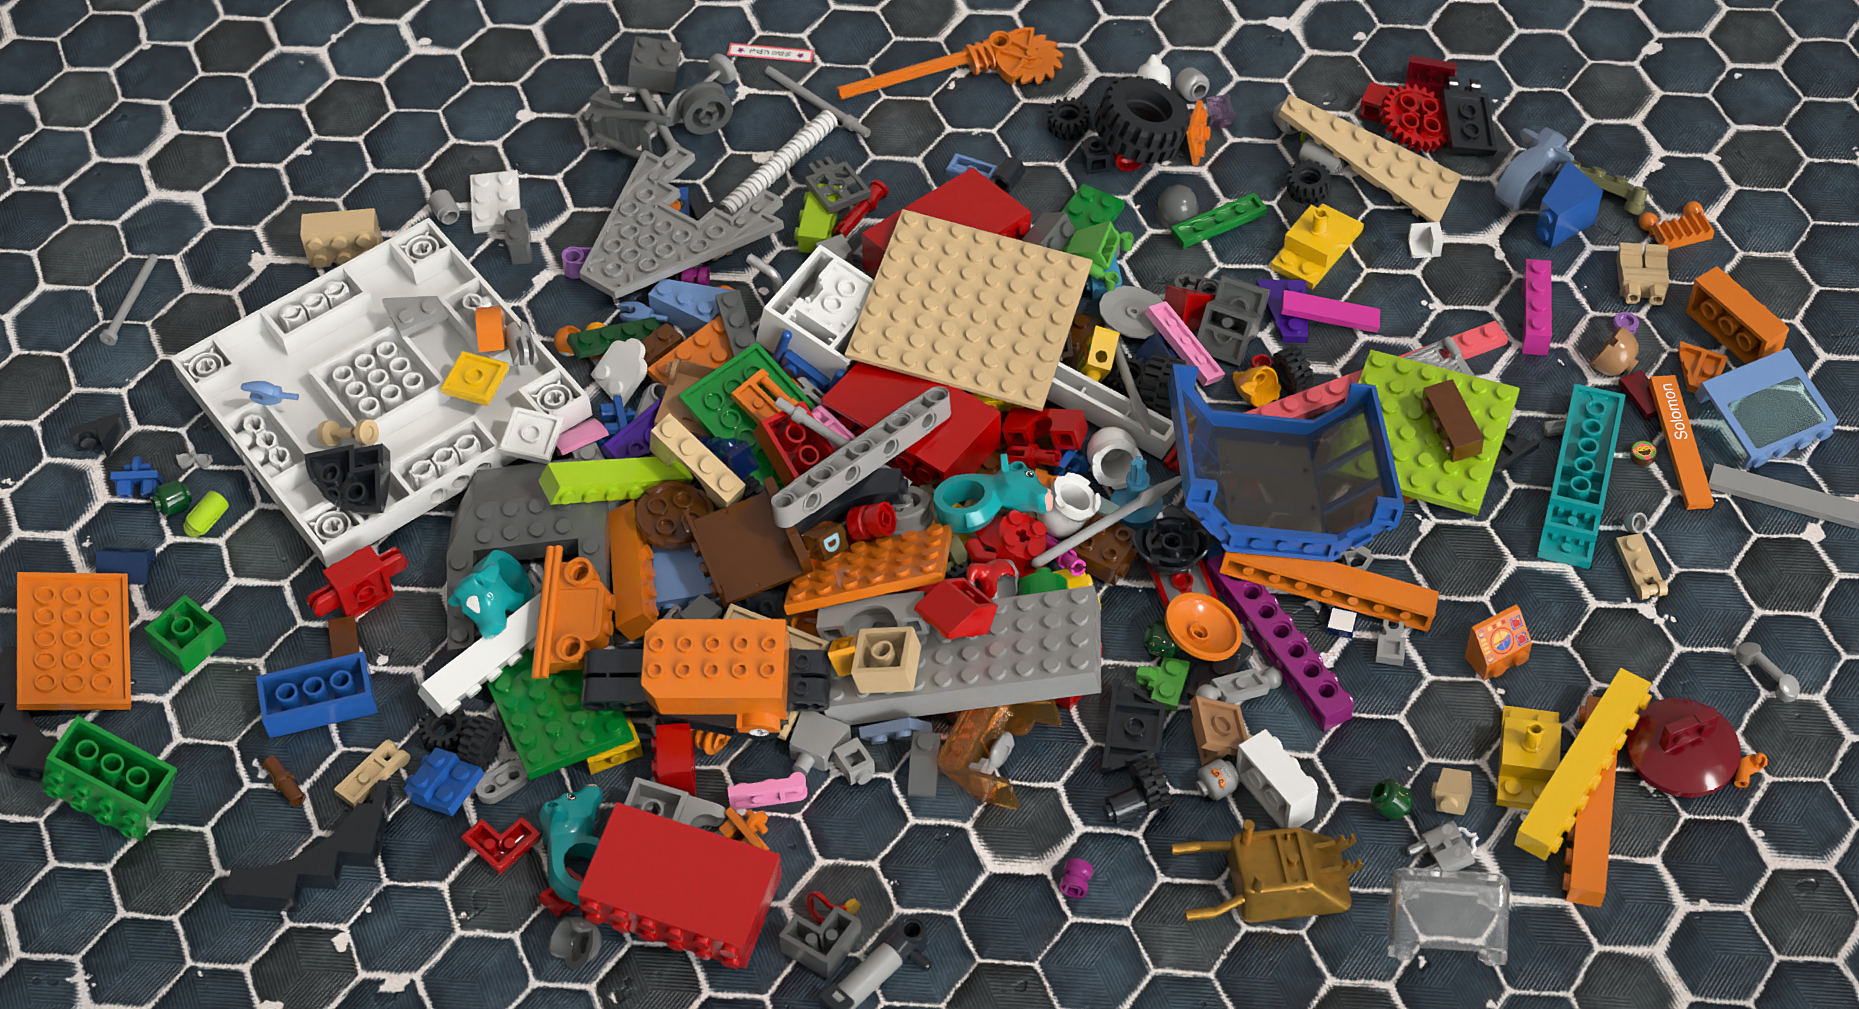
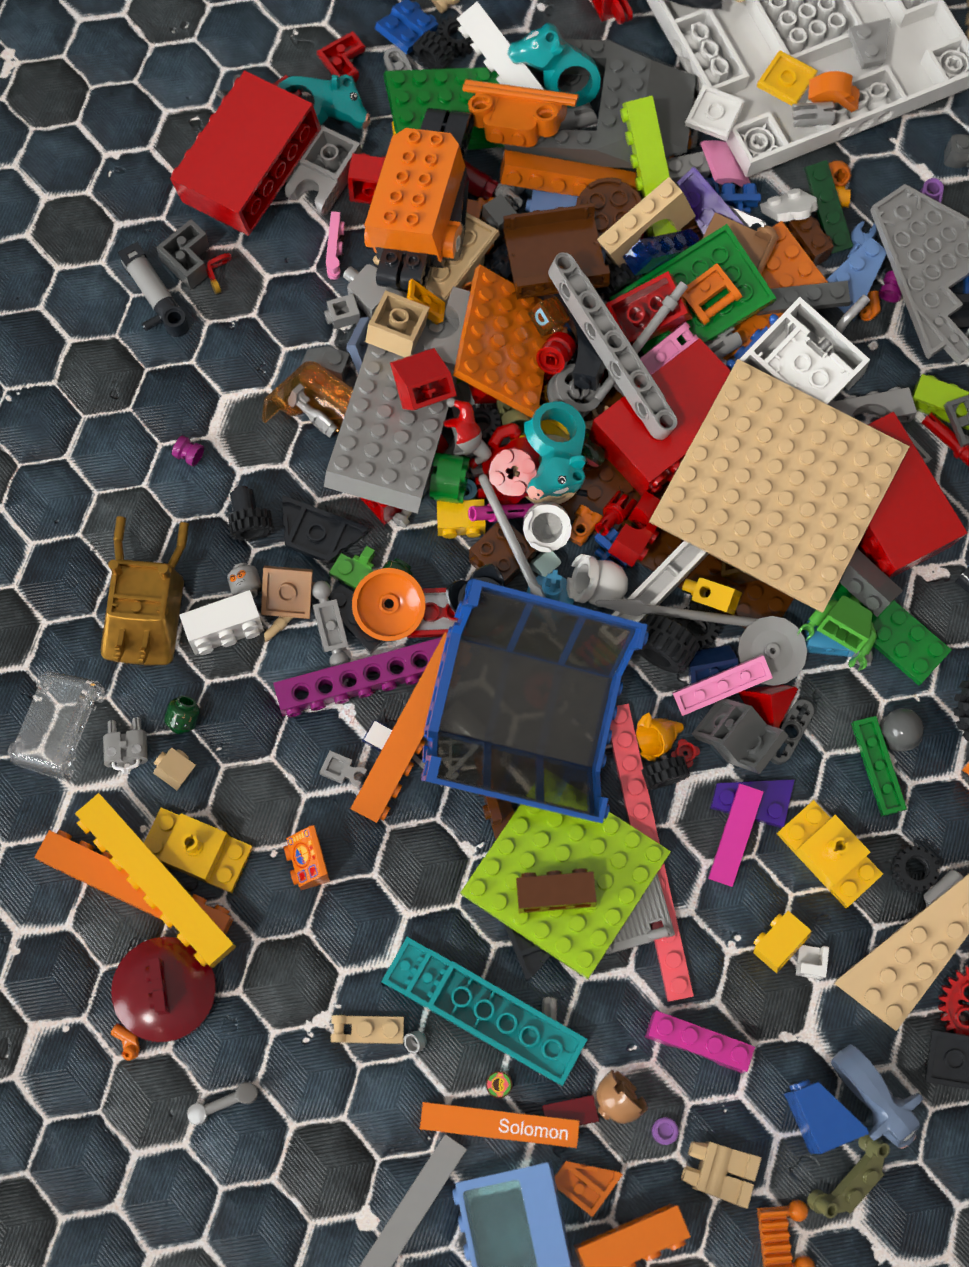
camera: 95 degrees right, 20 degrees up
(736, 824) = (303, 224): orange hips -> none
(1417, 262) = (781, 941): none -> yellow brick

